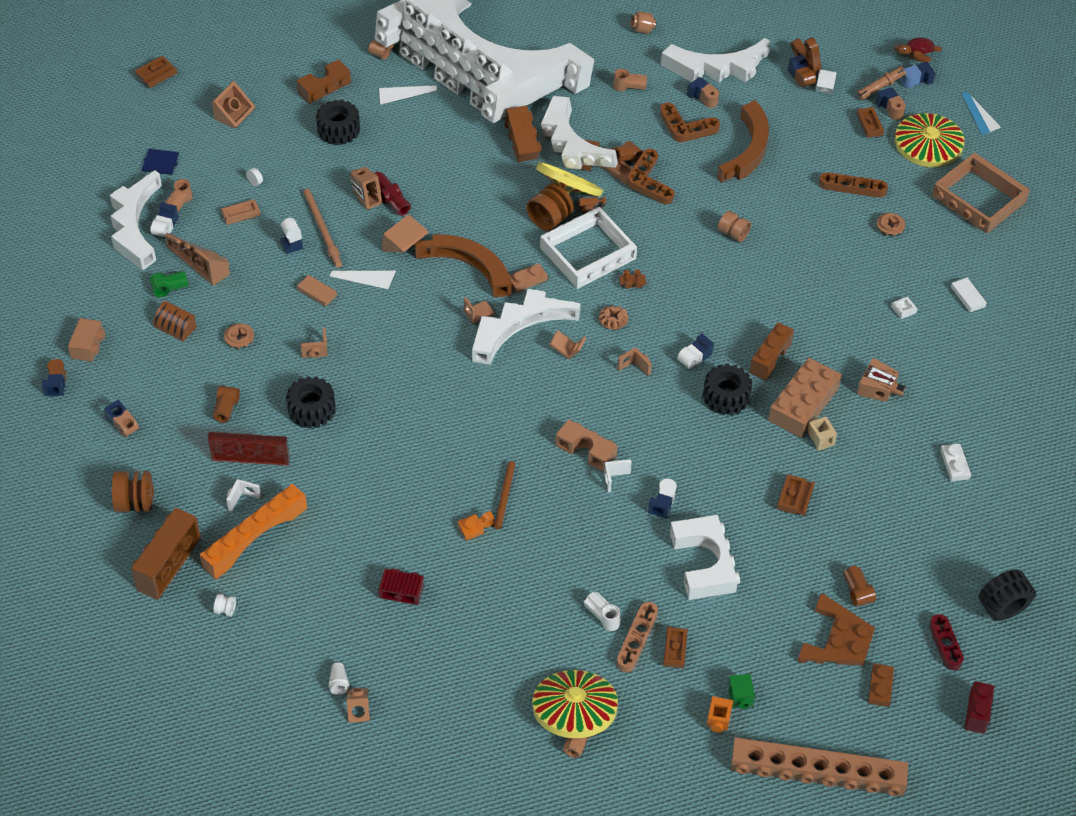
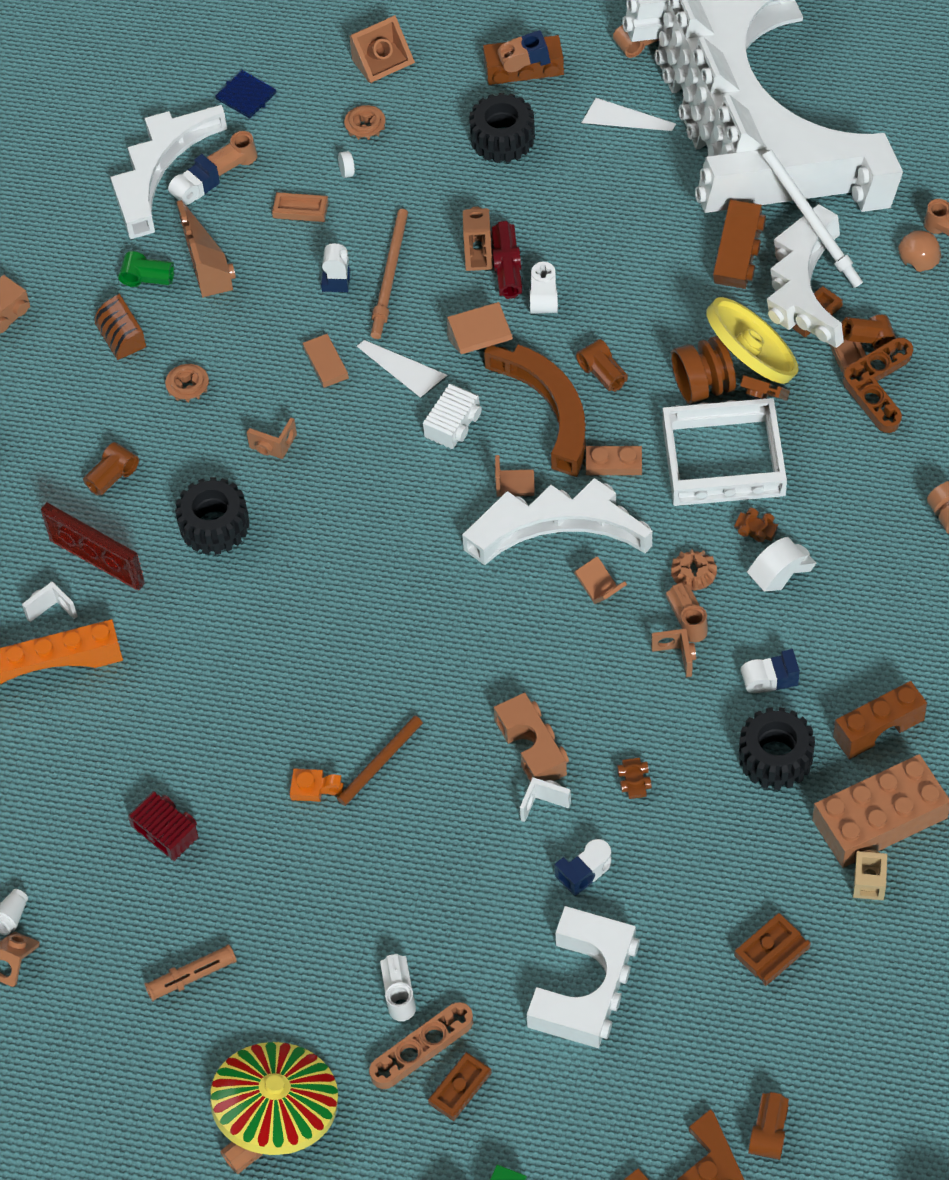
camera: 35 degrees right, 5 degrees up
(246, 145) = (365, 114): none -> nougat gear
(327, 73) = (524, 51): none -> leg
(417, 290) = (451, 416): none -> white brick
(424, 201) = (543, 289): none -> white piece
(469, 667) = (222, 958): none -> nougat pin
(481, 226) = (599, 361): none -> dark orange piece
(586, 121) = (843, 261): none -> white bar
(622, 101) = (920, 250): none -> nougat hair
(626, 338) = (688, 612): none -> nougat piece
(658, 442) = (634, 781): none -> dark orange piece
(662, 293) = (778, 563): none -> white brick

